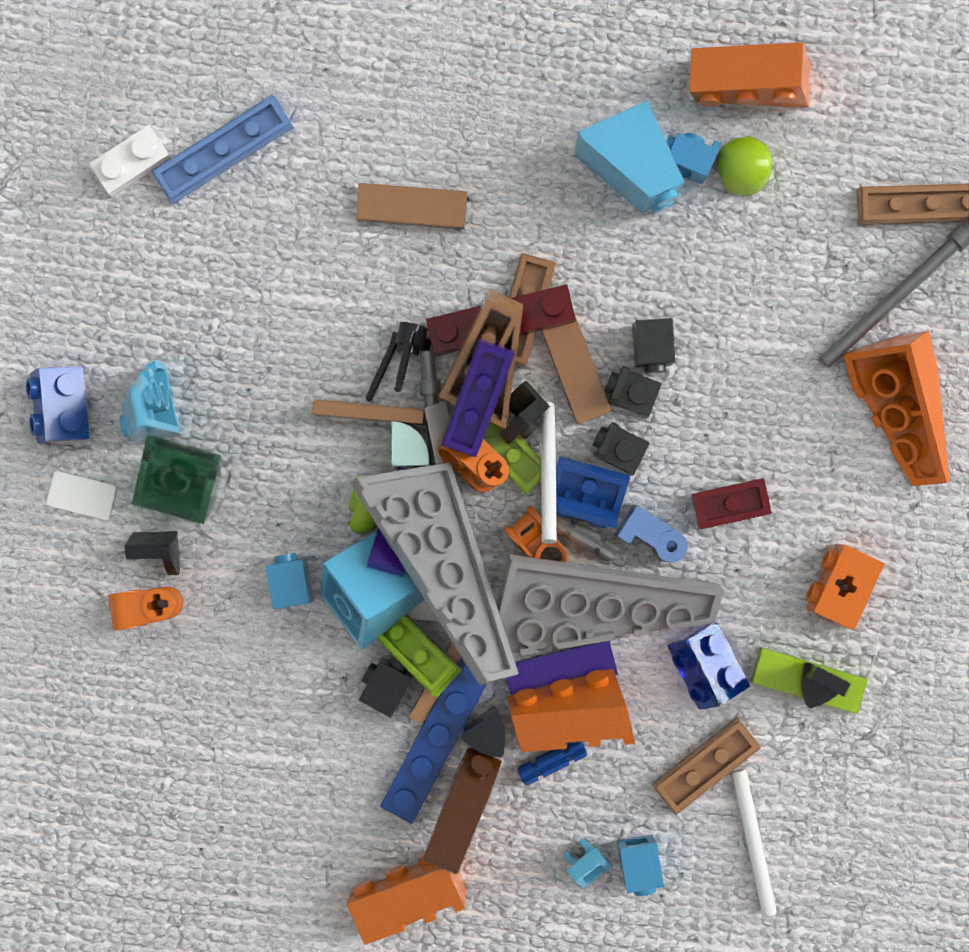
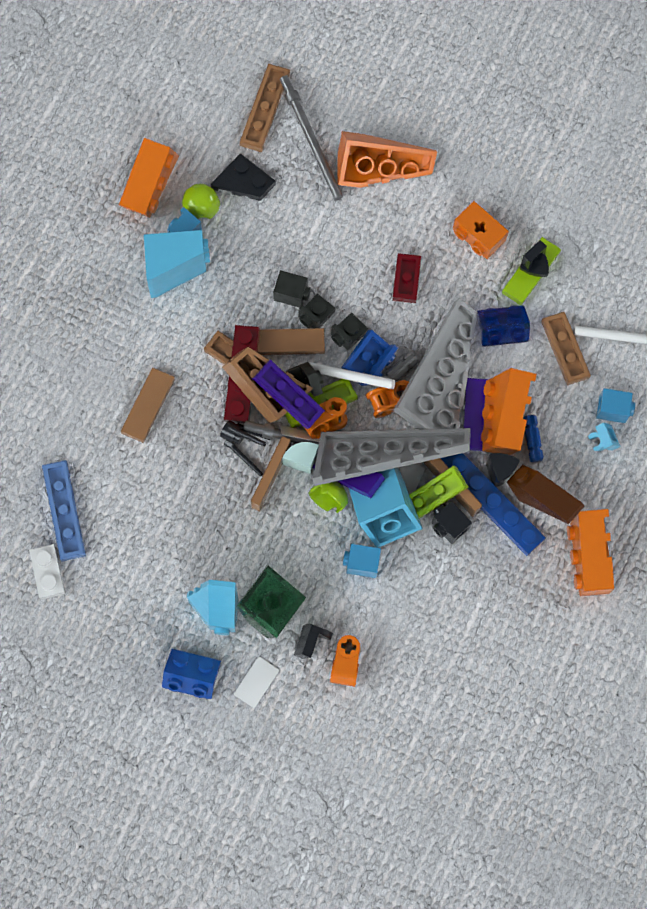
camera: 80 degrees left, 15 degrees down
(665, 541) = (407, 329): medium blue leg -> none
(803, 215) = (244, 179): none -> black wing

